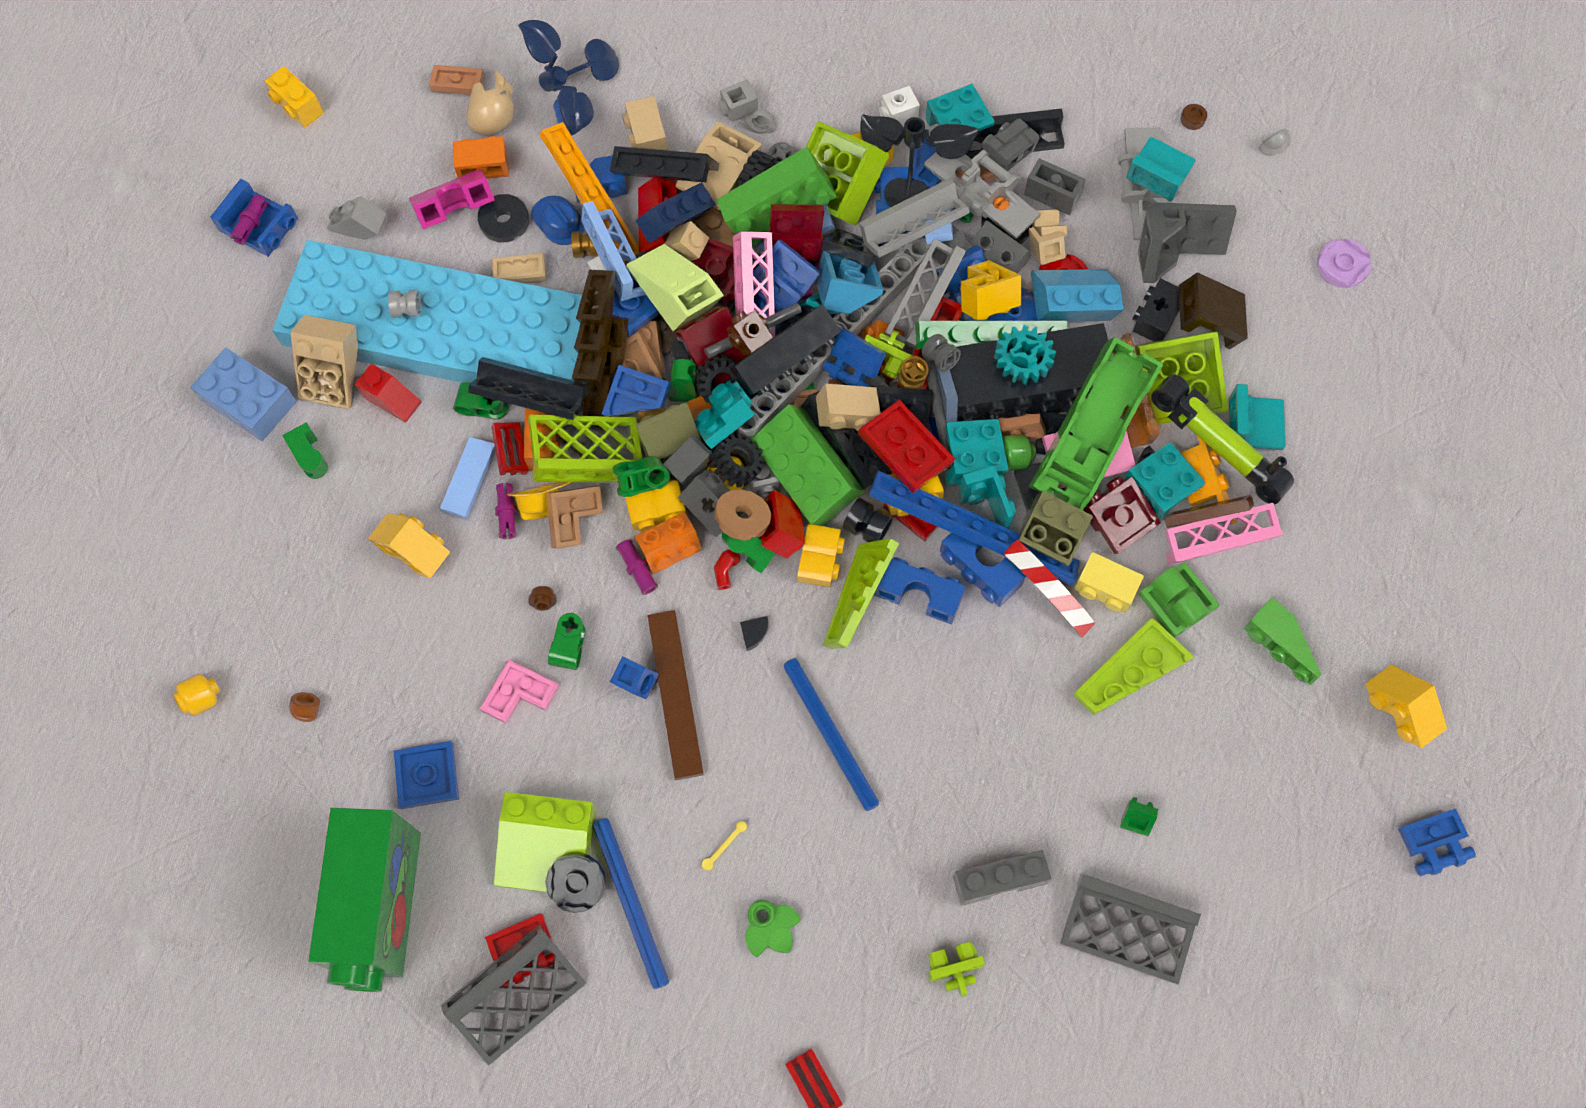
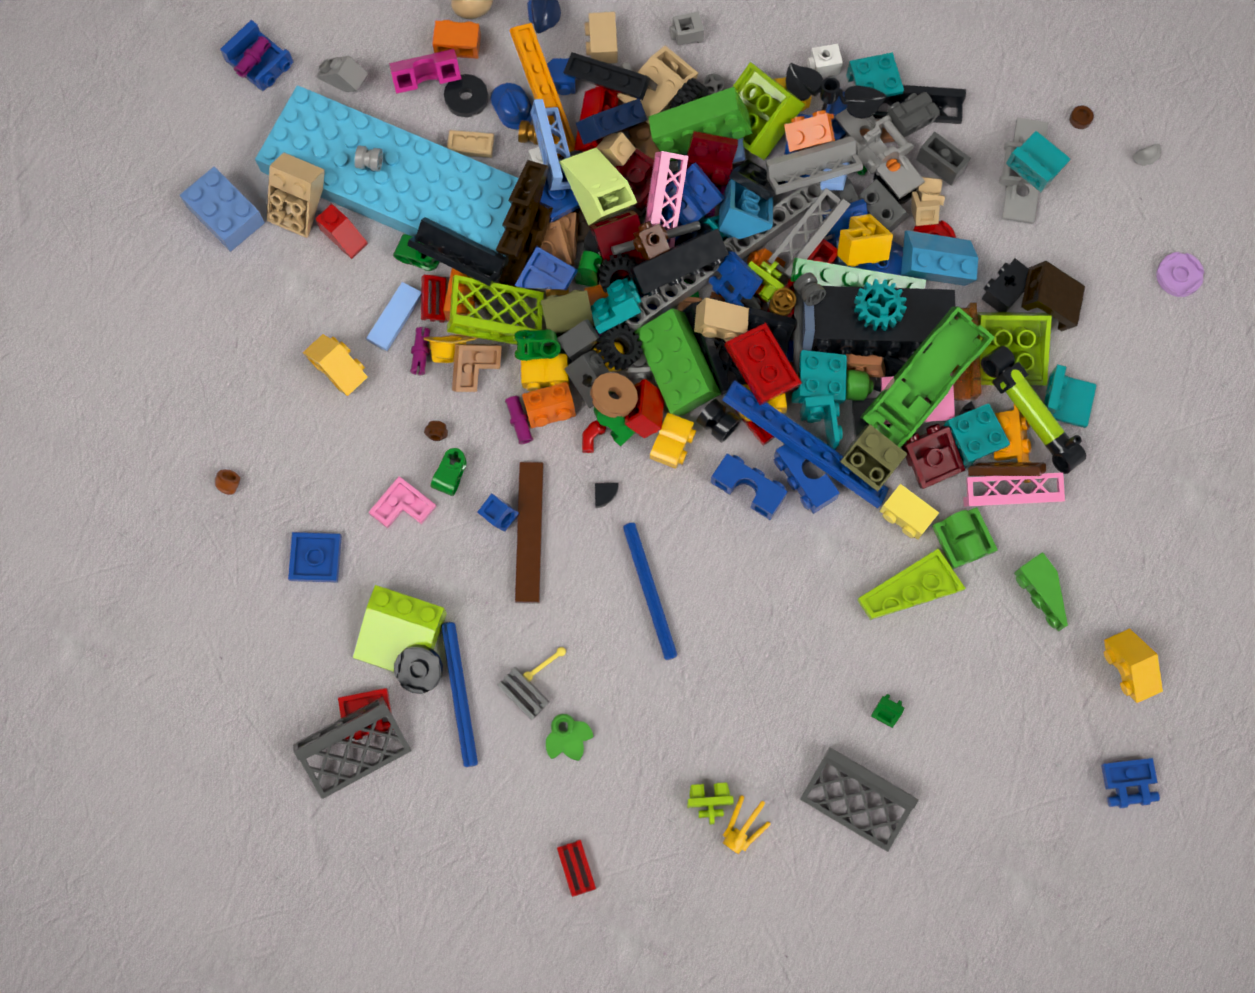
camera: 10 degrees right, 5 degrees up
(196, 694) = (142, 454): yellow head -> none
(308, 458) = (261, 261): green leg -> none
(365, 897) = (248, 647): green brick -> none
(685, 871) = (509, 678): none -> tile
(760, 121) = (702, 50): light grey piece -> none
(859, 587) = (699, 474): lime wing -> none
(901, 182) = (809, 132): none -> orange bracket
(997, 1007) = (736, 839): none -> yellow plant
(1001, 876) = (756, 736): dark grey arch -> none
(1050, 587) = (858, 506): sticker -> none
(1182, 229) = (1044, 218): dark grey bracket -> none

